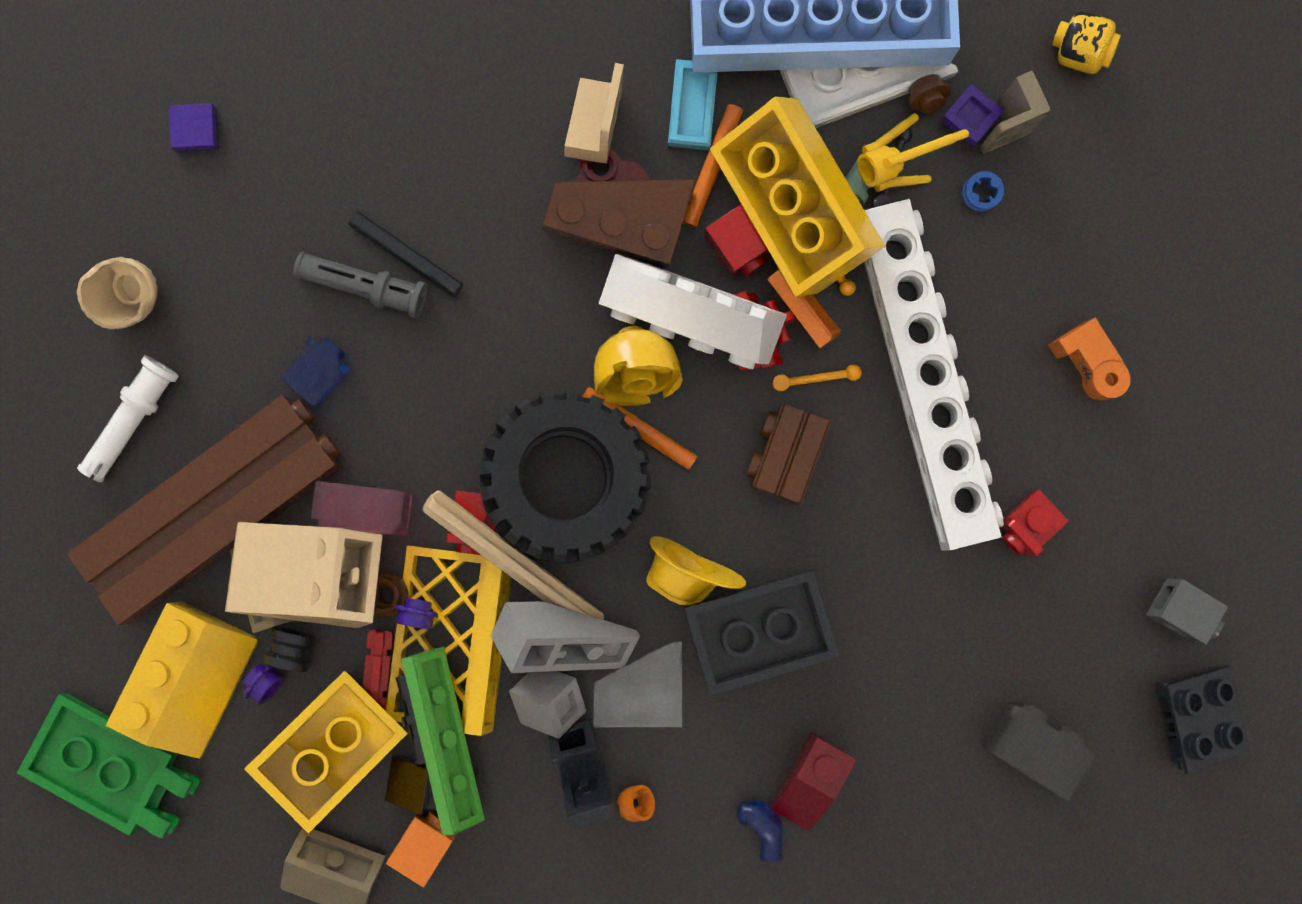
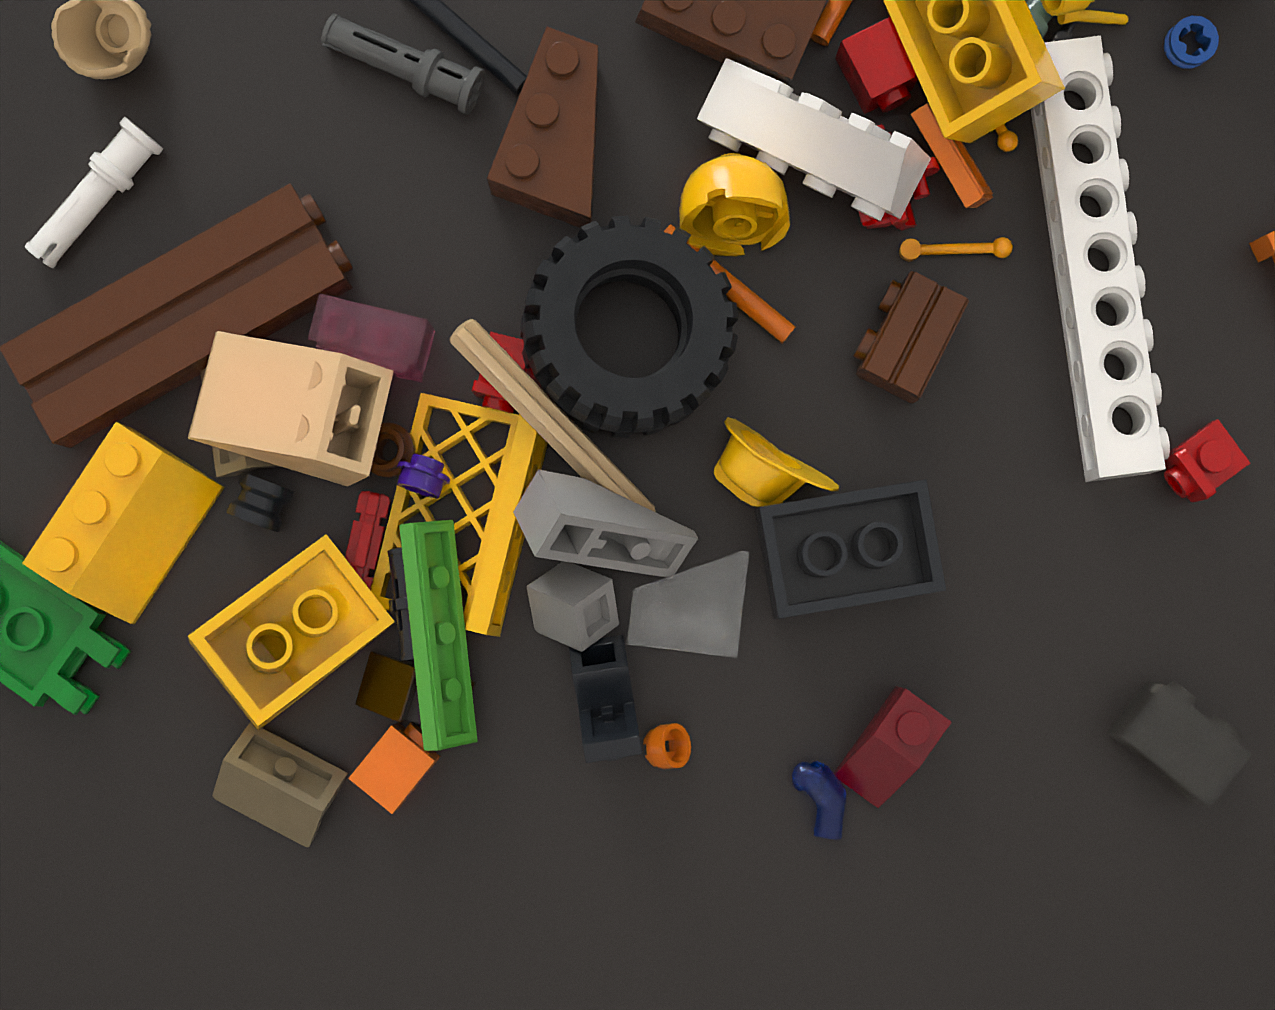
camera: 10 degrees right, 0 degrees up
(262, 683) = (221, 539): dark purple plate -> none
(317, 370) = (336, 162): clear blue bracket -> none
(486, 329) = (551, 136): none -> reddish brown wedge

